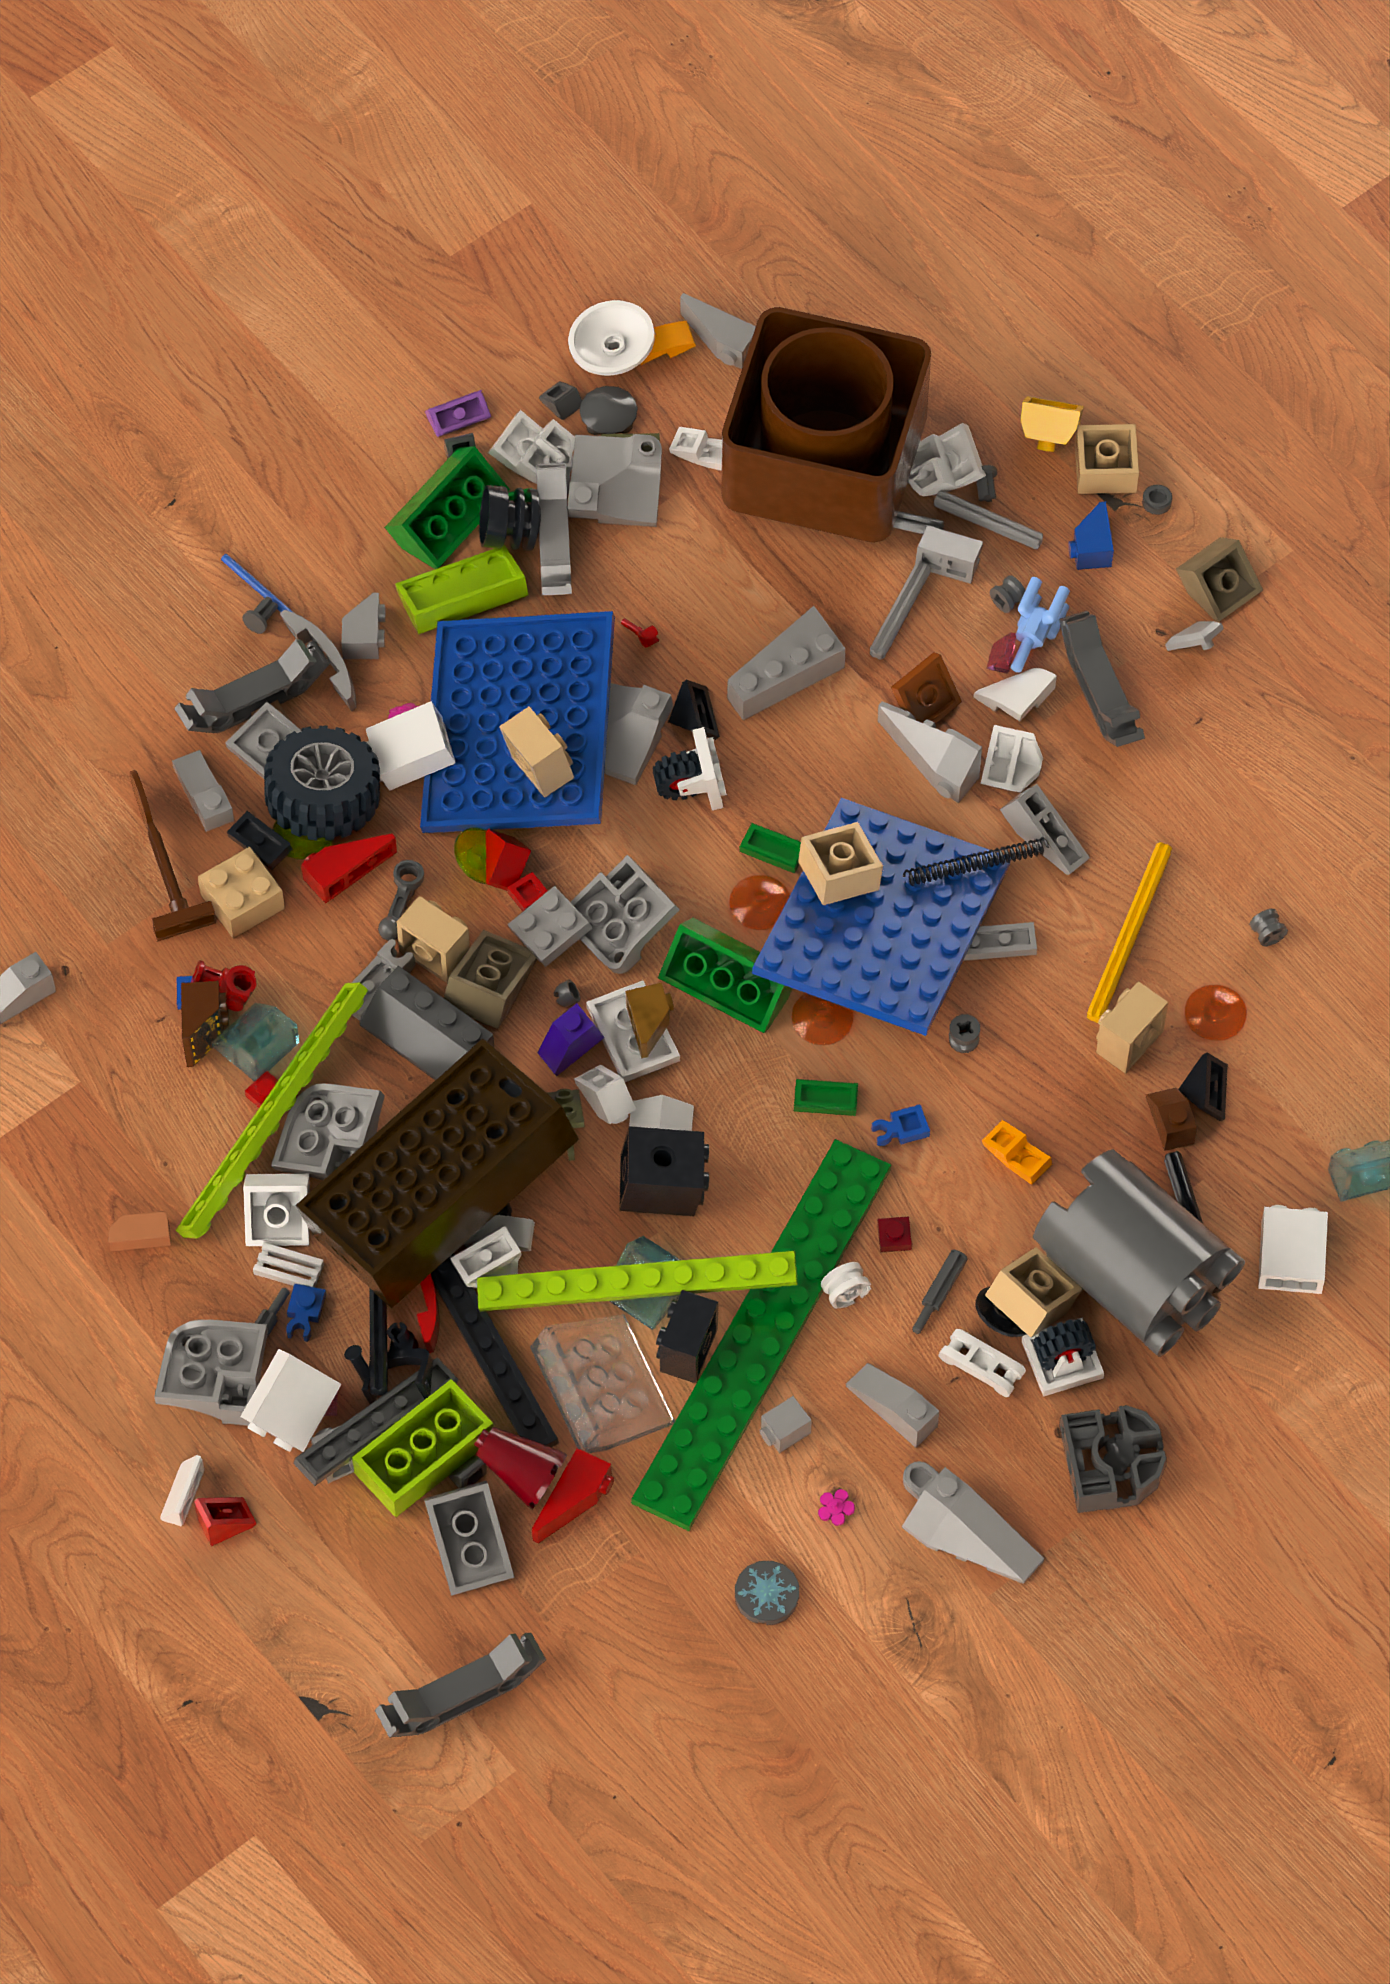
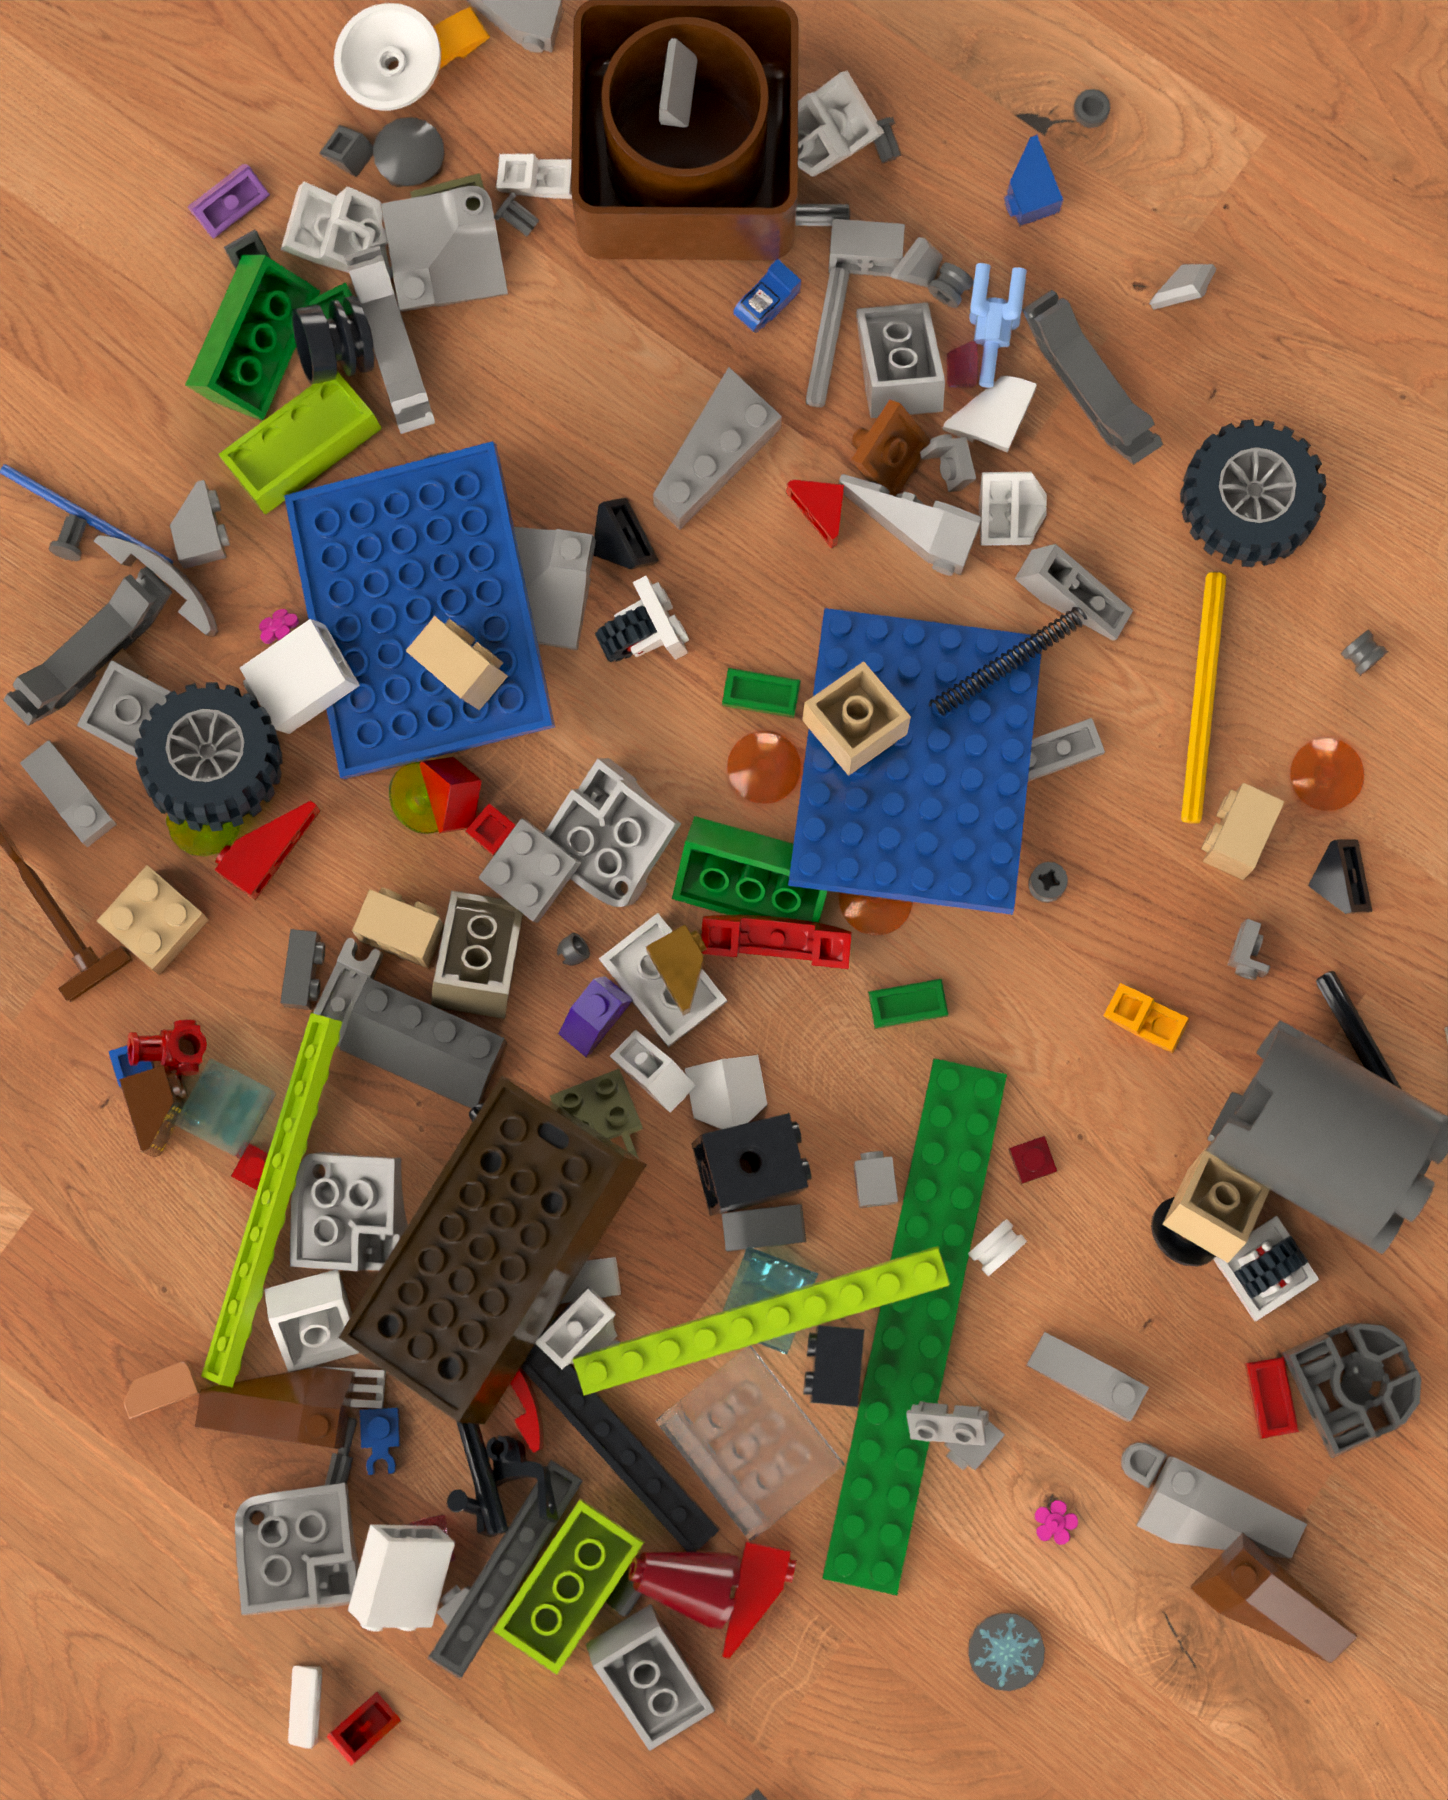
camera: 15 degrees left, 20 degrees up
(239, 1268) = (291, 1406): none -> reddish brown wedge
(264, 841) = (155, 848): black hinge -> none
(346, 955) = (300, 970): none -> dark grey piece
(388, 926) = (342, 917): dark grey piece -> none
(646, 637) = (538, 449): red hand -> none
(662, 1228) = (764, 1227): none -> dark grey slope
(679, 470) = (516, 215): none -> dark grey piece
(731, 1021) = (777, 937): none -> red slope
(761, 1215) = (875, 1180): none -> light grey brick
(766, 1398) = (934, 1423): none -> light grey hinge
(824, 374) = (677, 85): none -> light grey slope
(859, 723) = (820, 505): none -> red slope
(861, 570) = (768, 297): none -> blue leg
(905, 1124) = (1011, 1018): blue plate -> none
(940, 1287) = (1103, 1216): dark grey axle -> none
(955, 633) = (900, 358): none -> light grey slope
(975, 714) = (955, 458): none -> light grey bracket
(982, 1362) = (1175, 1298): white plate -> none
(986, 572) = (918, 264): none -> light grey piece
(988, 519) = (900, 187): light grey axle -> none
(989, 1598) = (1266, 1598): none -> reddish brown wedge
(1041, 1457) = (1271, 1397): none -> red tile
(1049, 421) = (944, 38): yellow brick -> none
(1106, 459) = (1022, 73): tan brick -> none
(1111, 1119) = (1246, 944): none -> light grey bracket
(1172, 1118) = (1312, 926): reddish brown slope -> none
(1208, 790) = (1253, 493): none -> black wheel
(1220, 578) = (1193, 199): dark tan slope -> none

